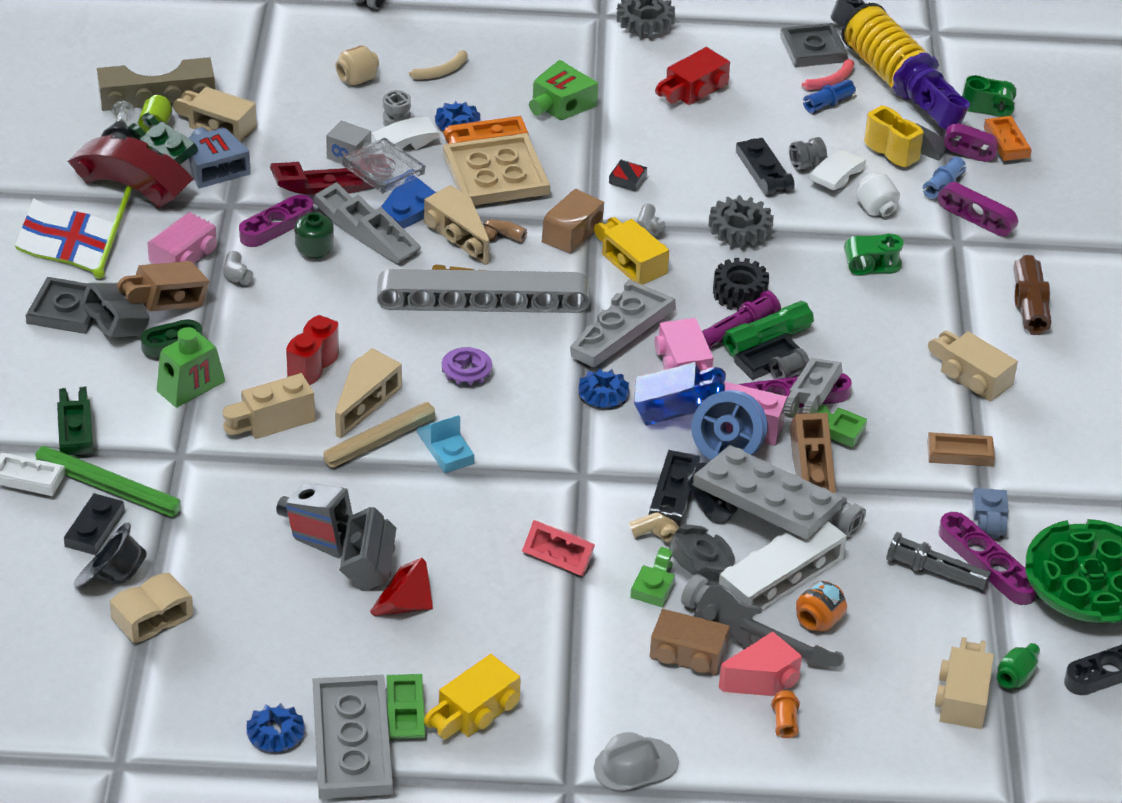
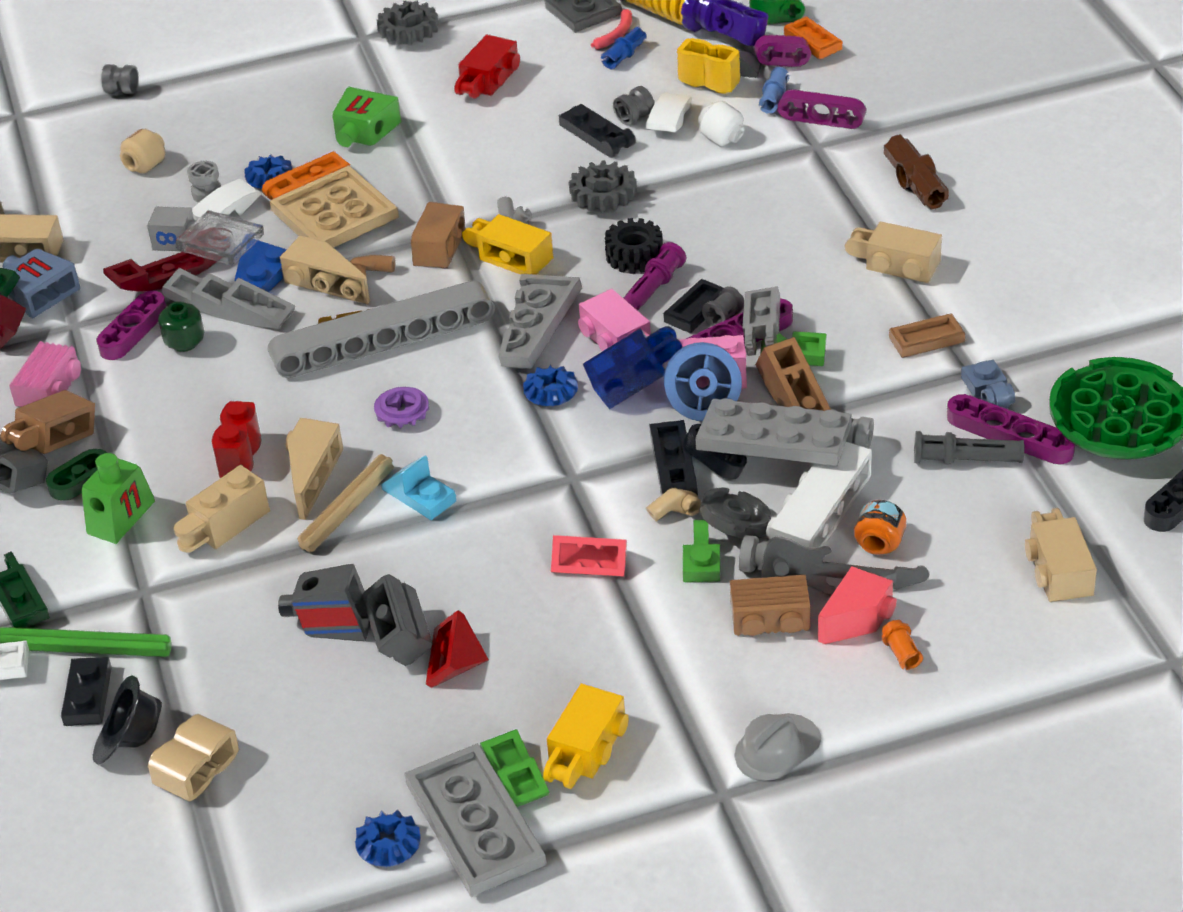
camera: 15 degrees left, 0 degrees up
(235, 271) = (114, 387): light grey arm -> none
(441, 70) = (227, 133): tan piece -> none
(627, 175) = (467, 177): black tile -> none
(786, 321) = (697, 266): green axle -> none
(872, 254) = (746, 179): green piece -> none
(1017, 666) = (1097, 522): green plant -> none

